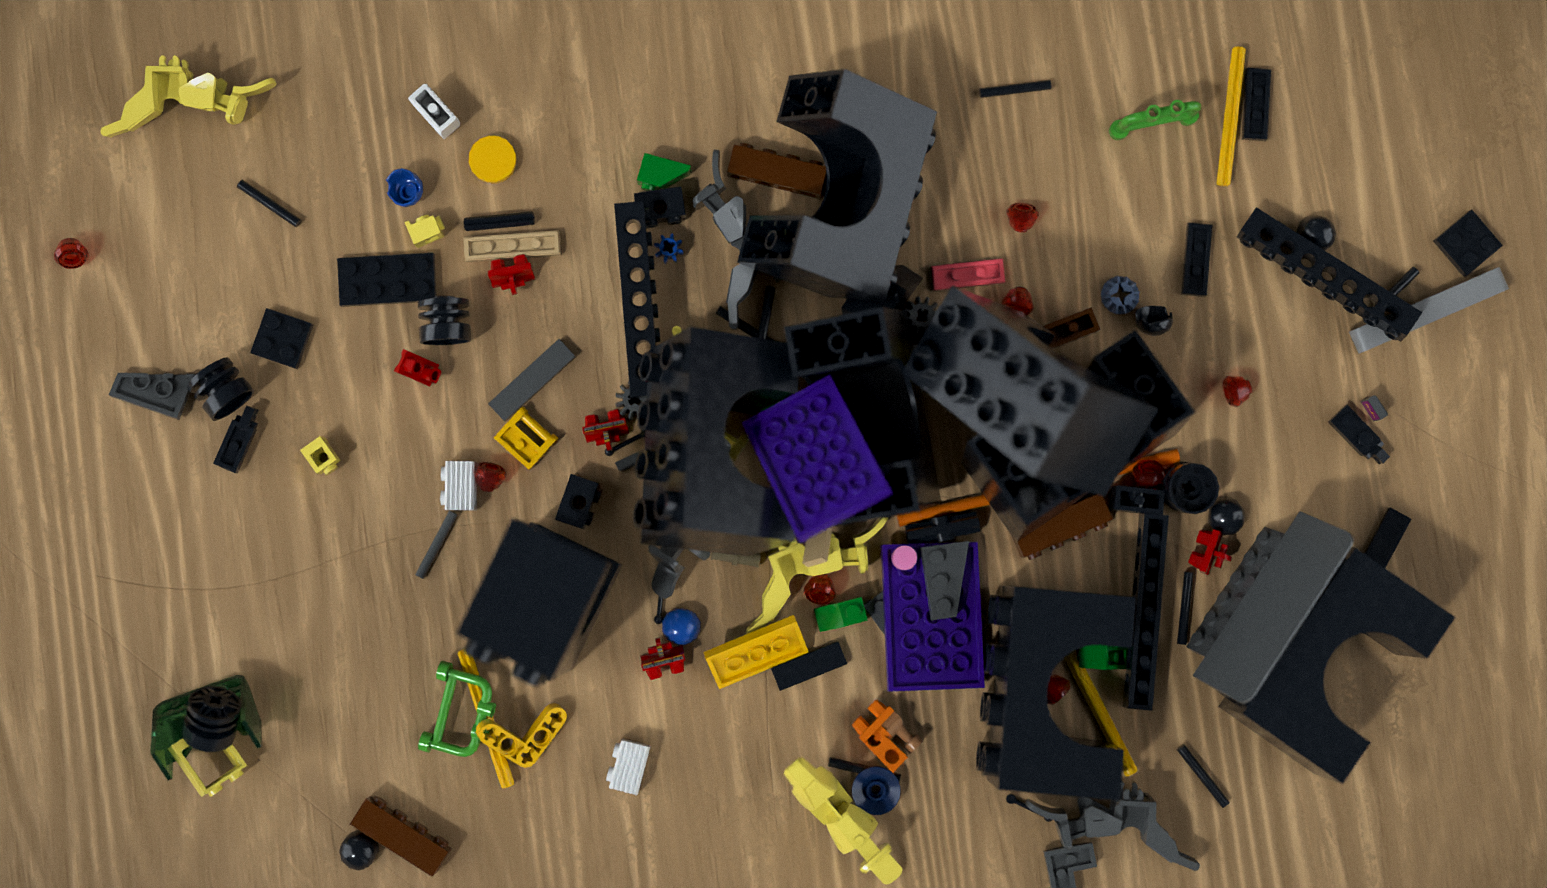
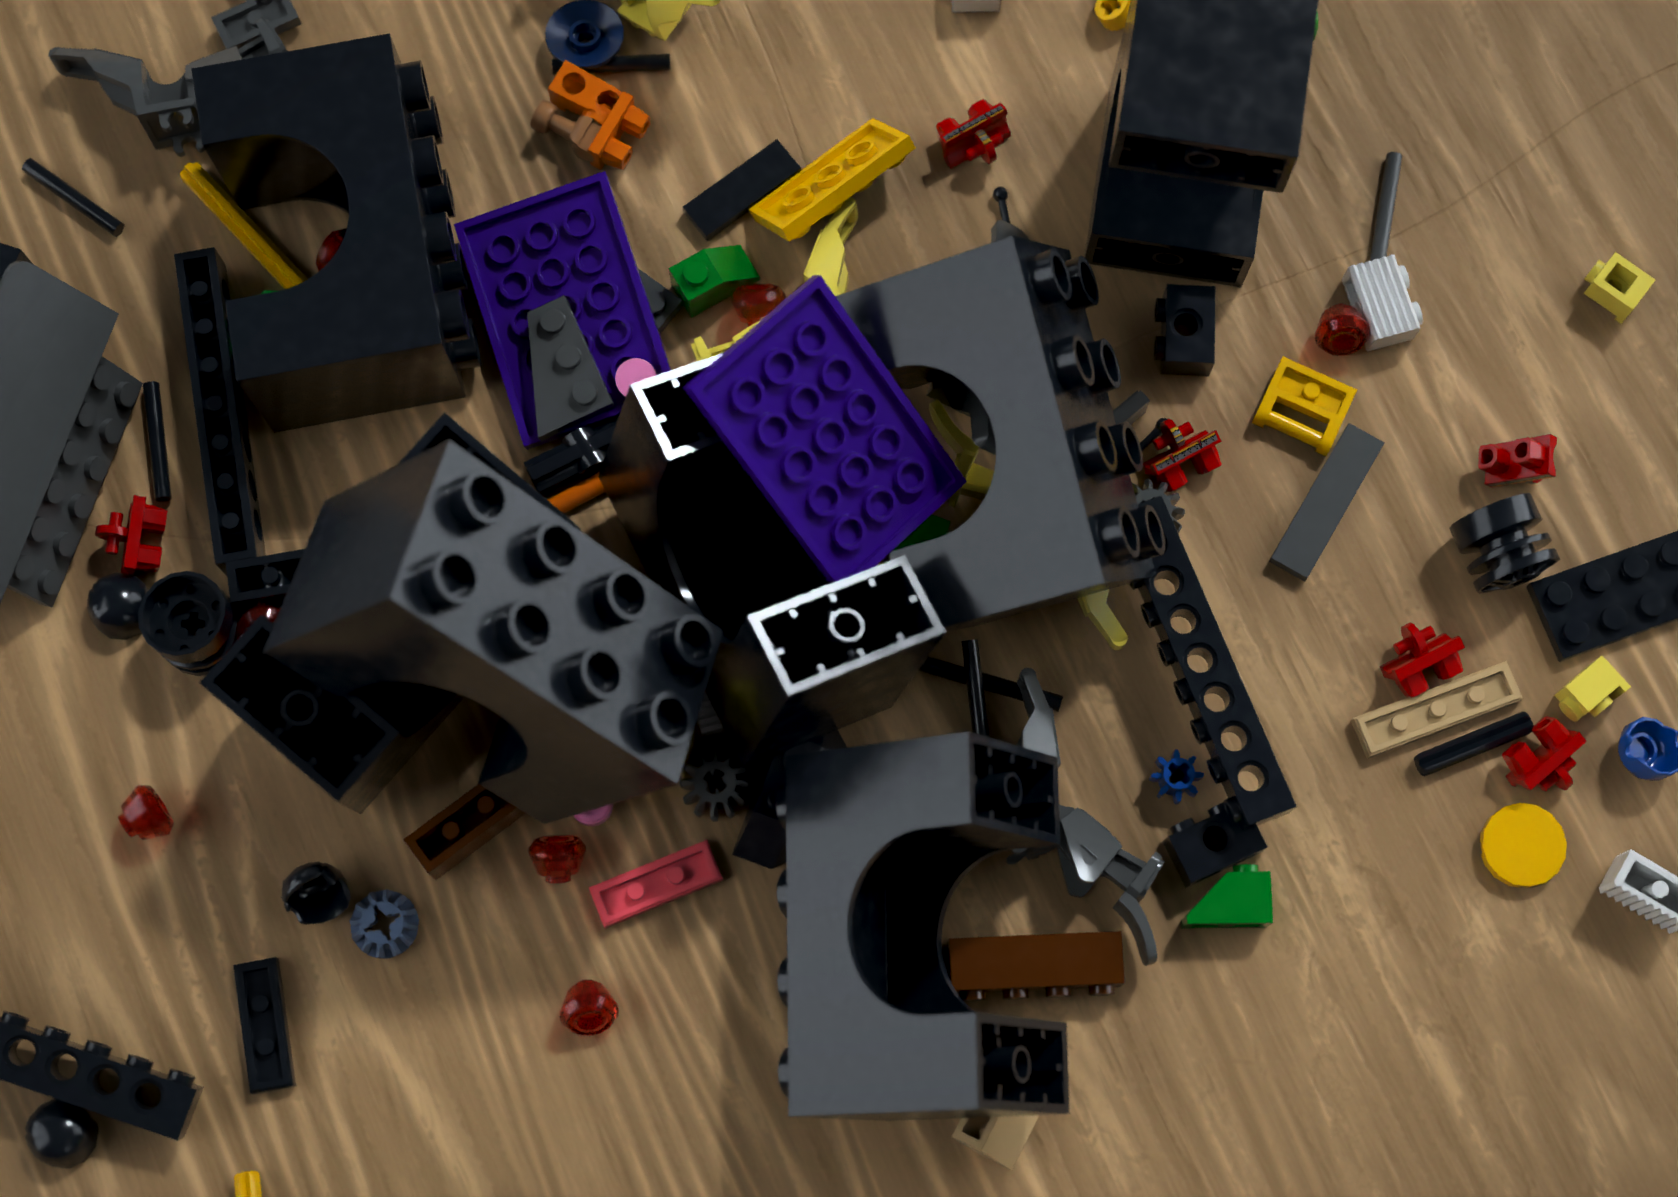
camera: 170 degrees right, 10 degrees down
(464, 198) = (1549, 762): none -> red hips
(681, 626) = (961, 192): blue hair -> none

